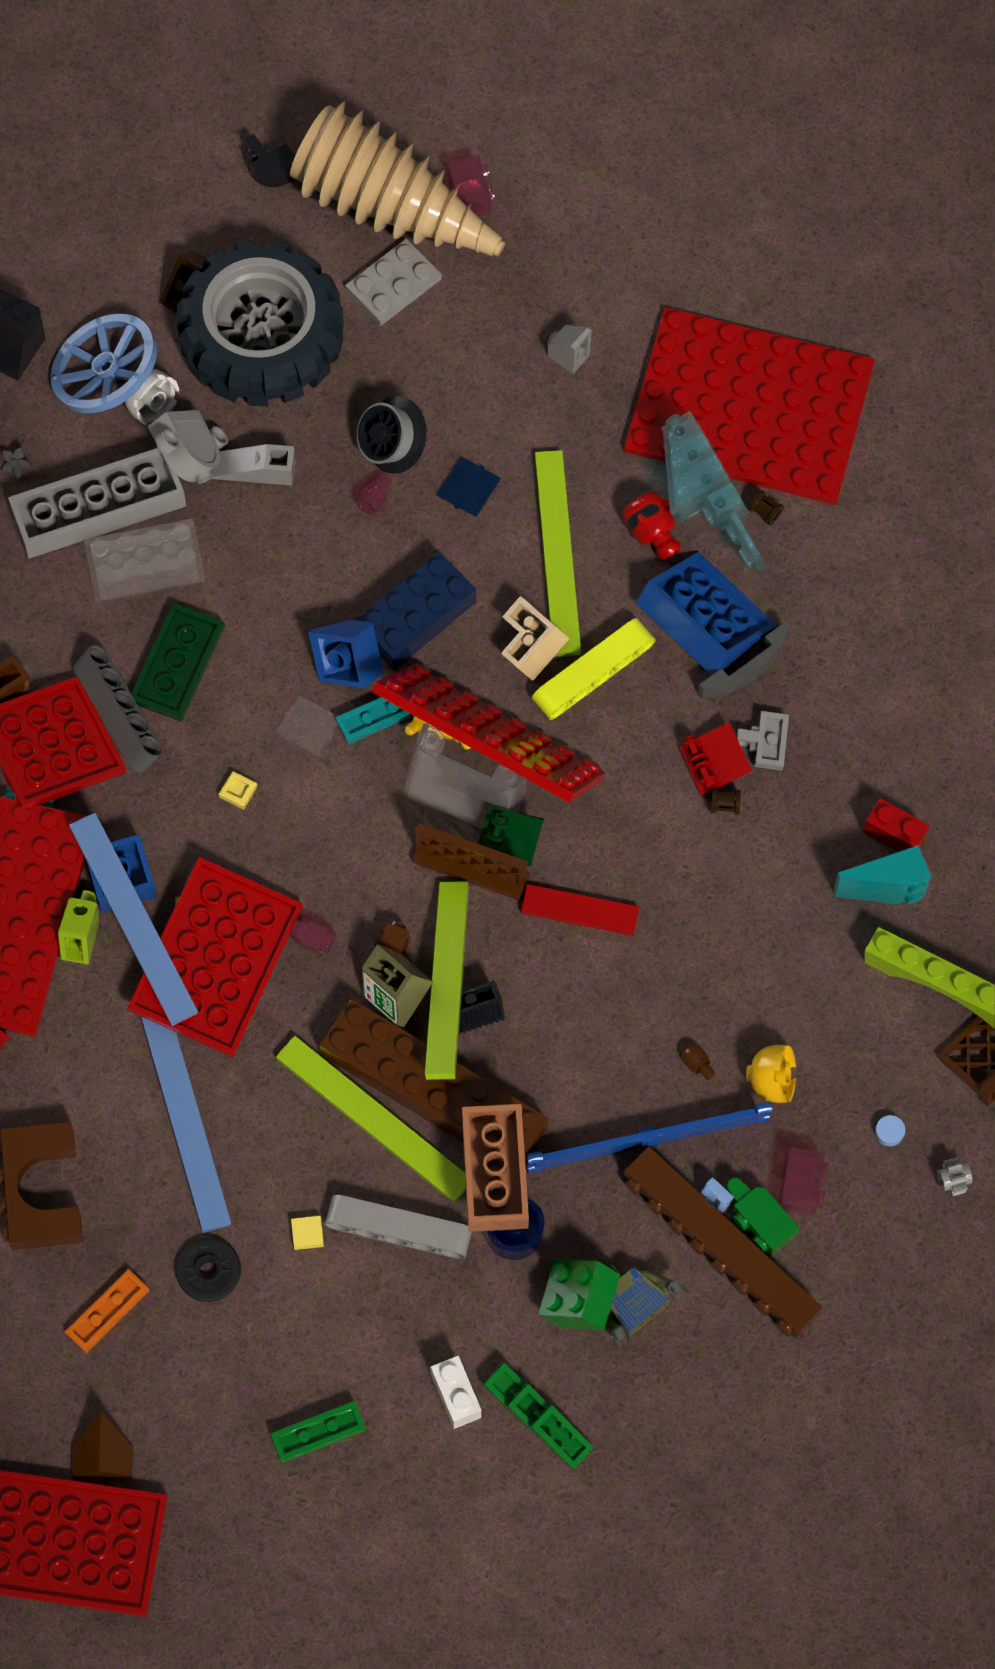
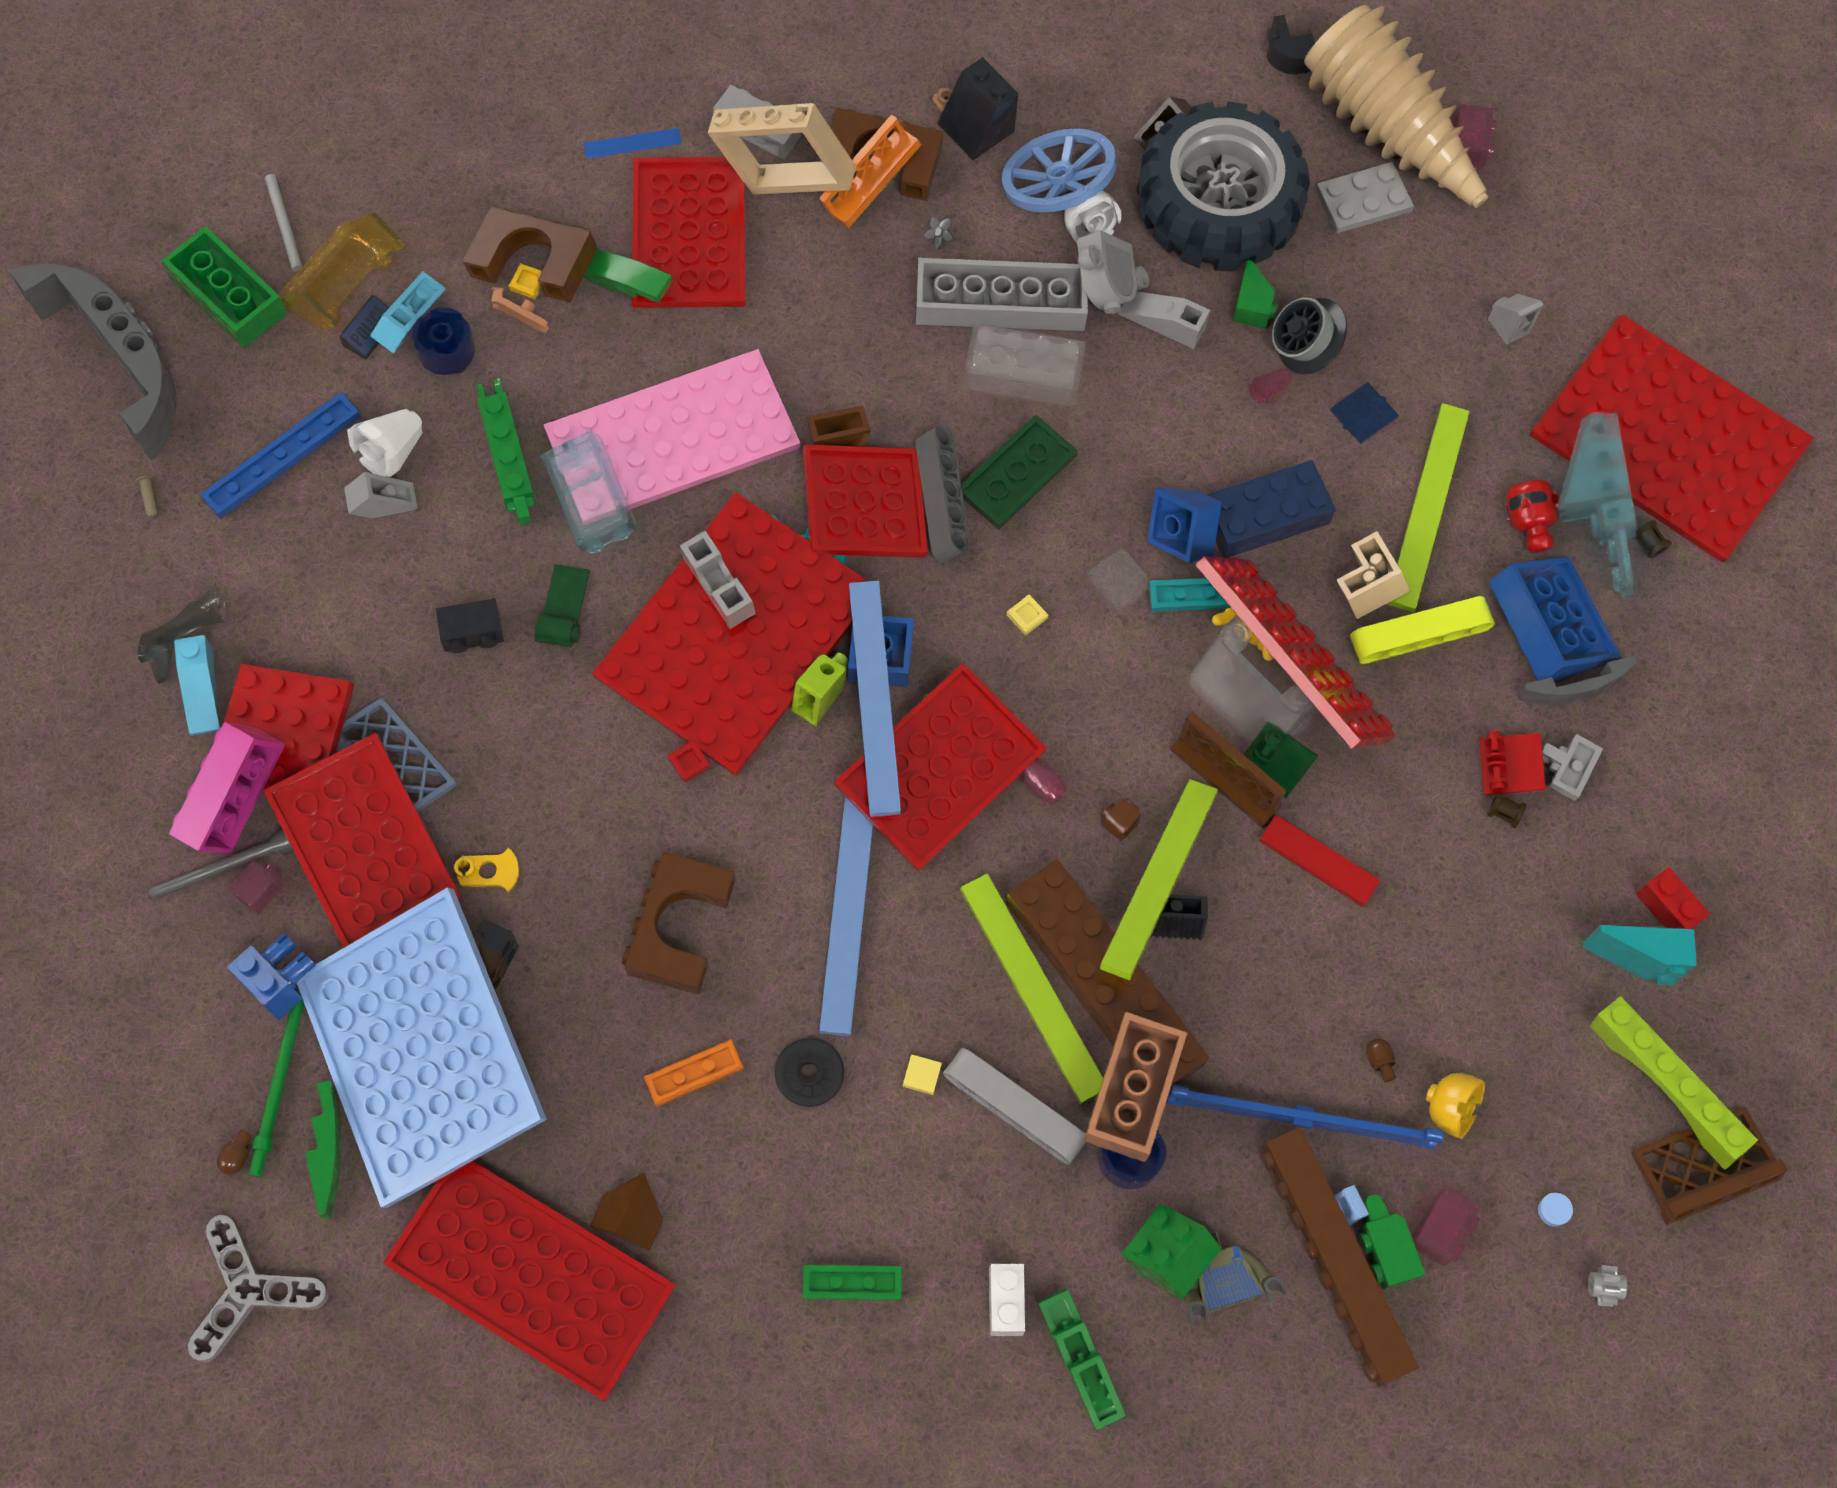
camera: 20 degrees right, 0 degrees up
(330, 418) = (1254, 299): none -> green slope
(393, 984) = (1104, 861): olive slope -> none

